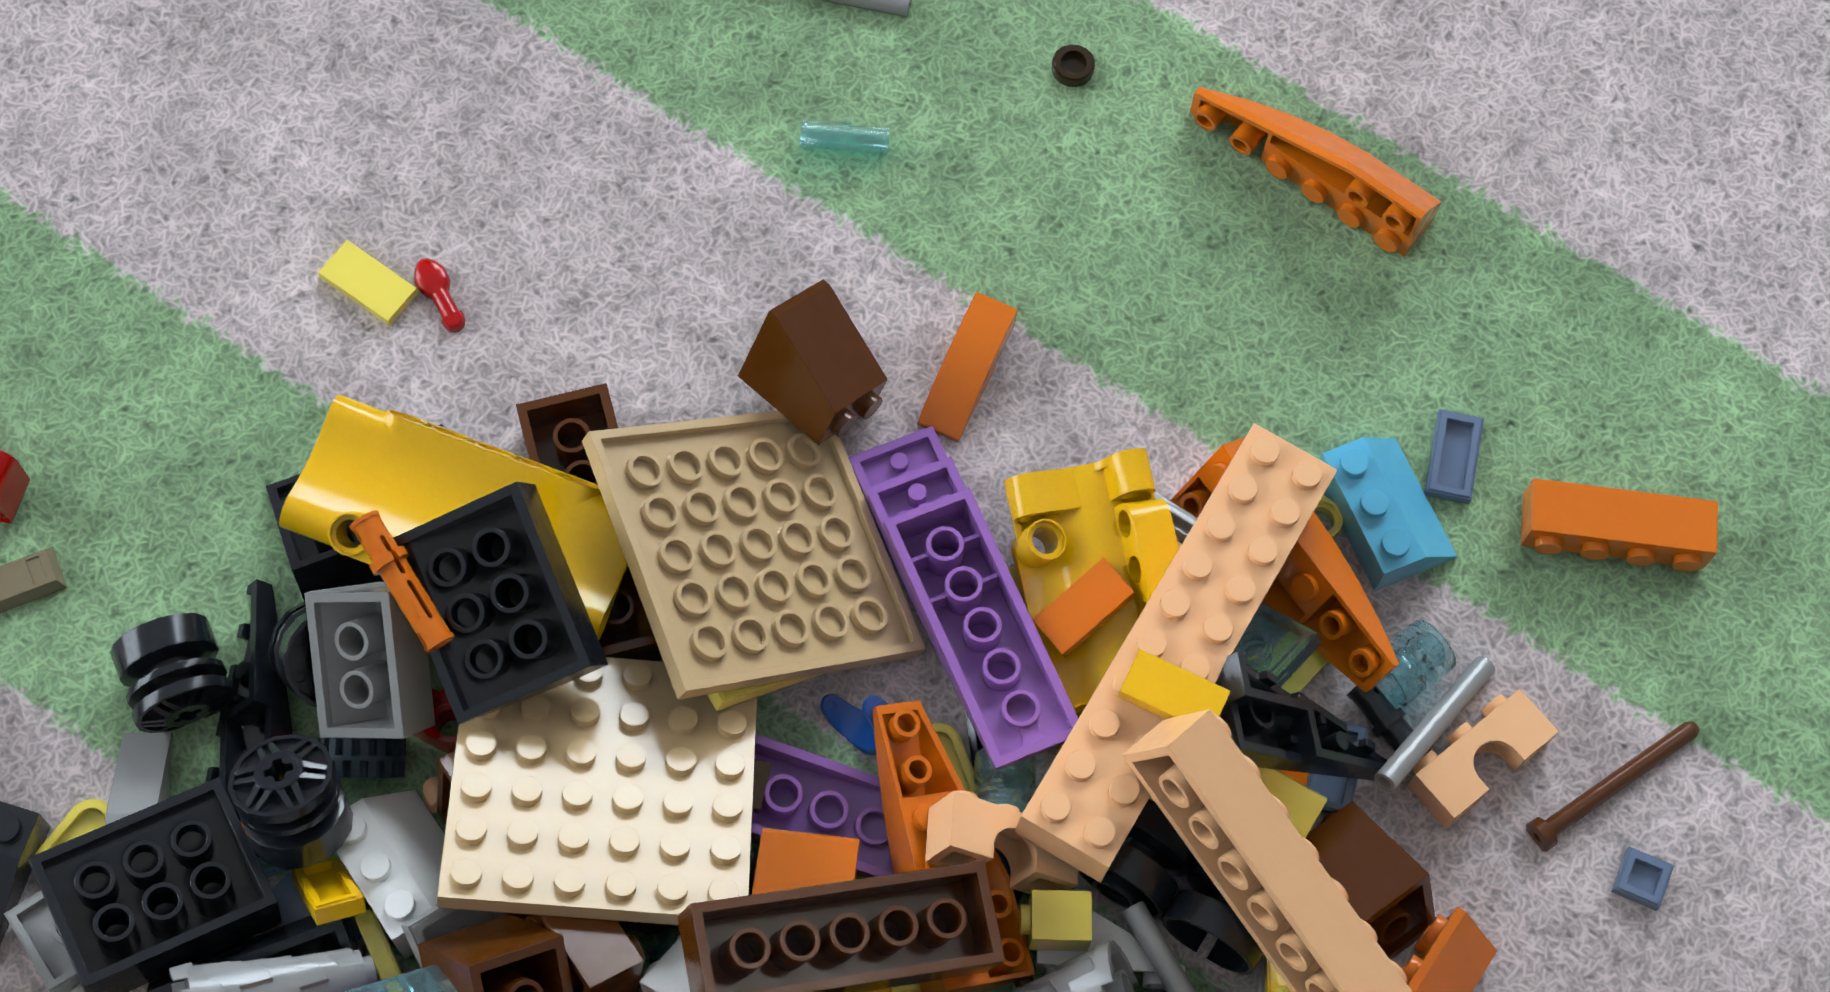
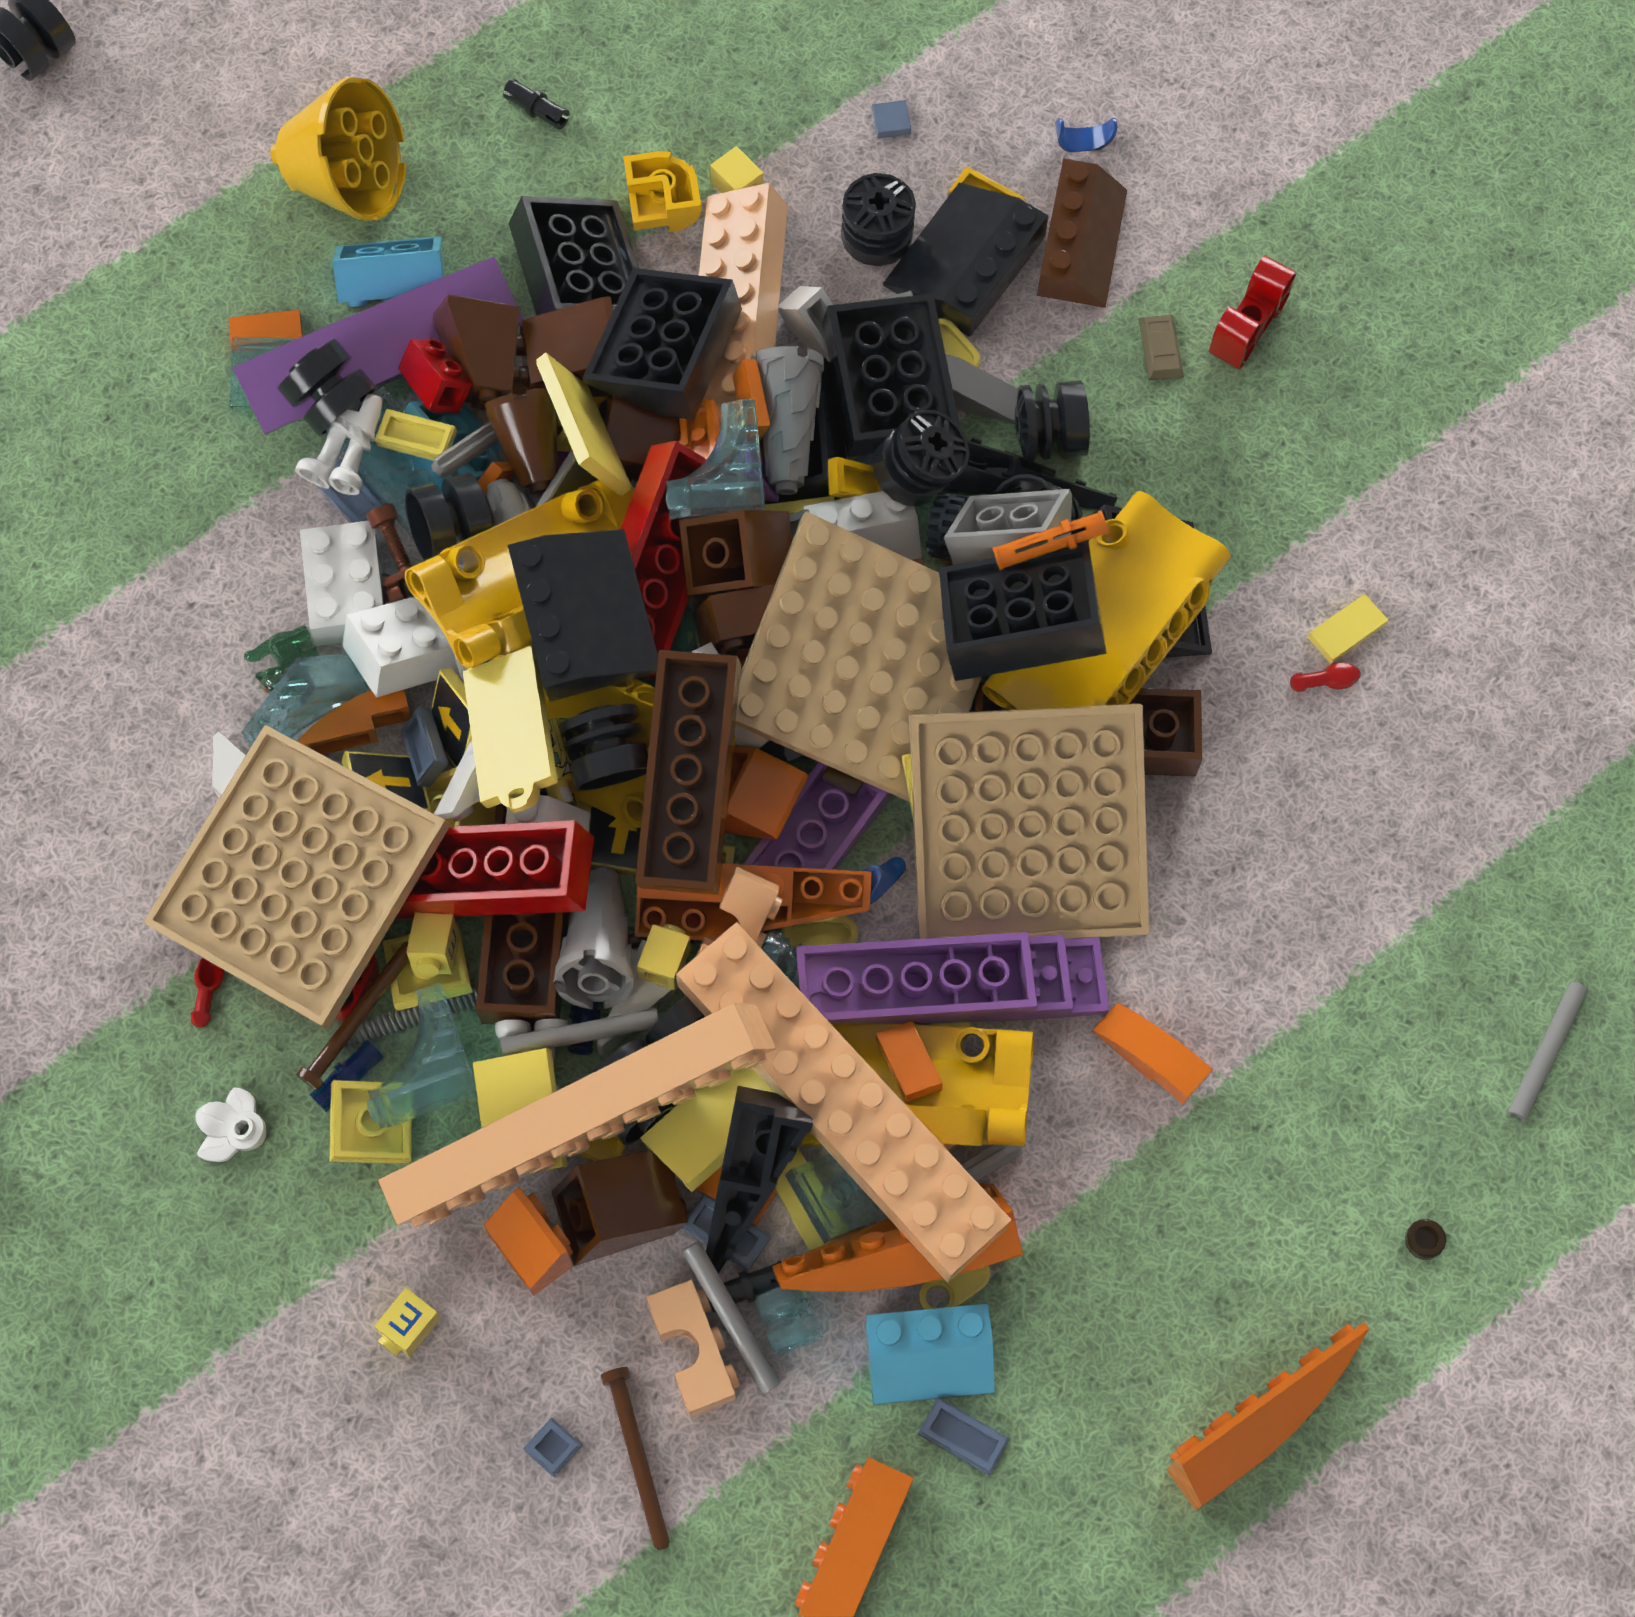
camera: 110 degrees right, 0 degrees up
(814, 365) = (1177, 922): reddish brown slope -> none
(844, 137) = (1394, 1020): clear light blue pin -> none
(1169, 689) = (793, 1061): yellow tile -> none

